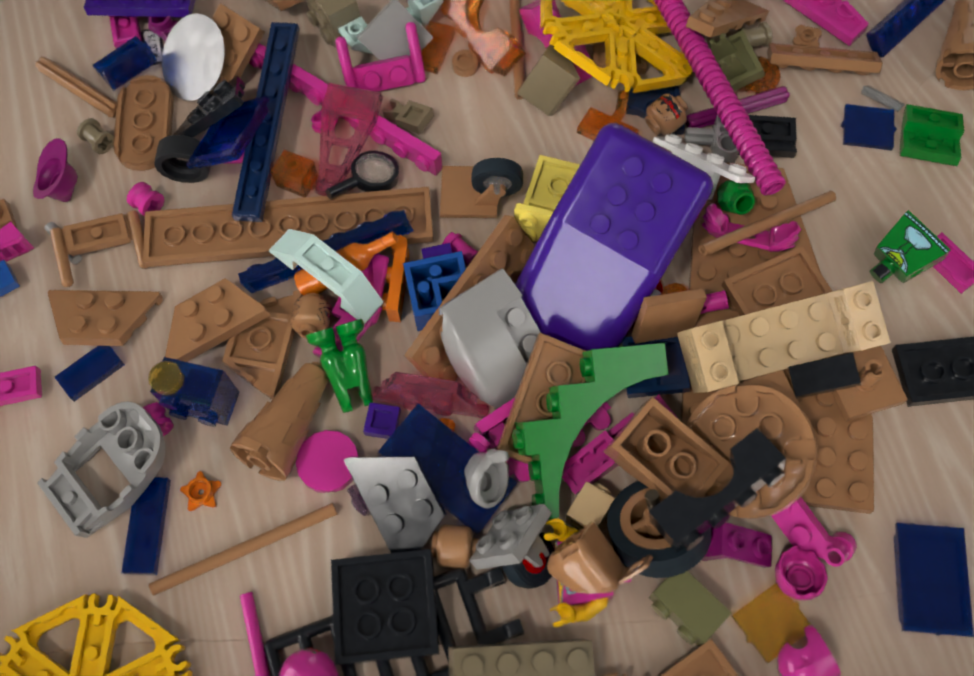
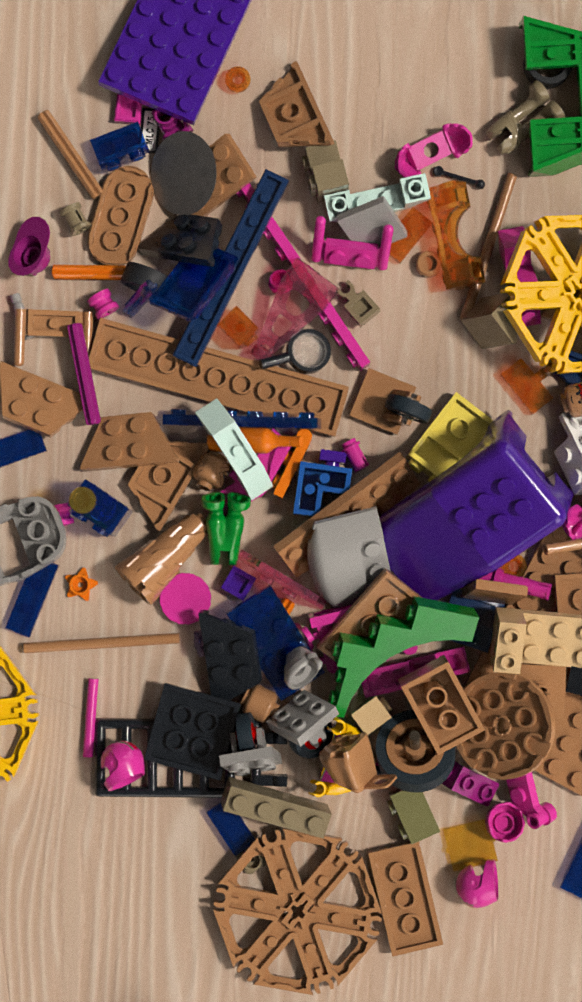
camera: 20 degrees right, 20 degrees up
(120, 180) = (88, 272): none -> orange axle
(141, 268) = (84, 373): none -> magenta axle
(178, 170) = (140, 298): none -> clear blue axle
(461, 599) = (249, 749): none -> light grey plate
(684, 518) = (429, 762): black arch -> none

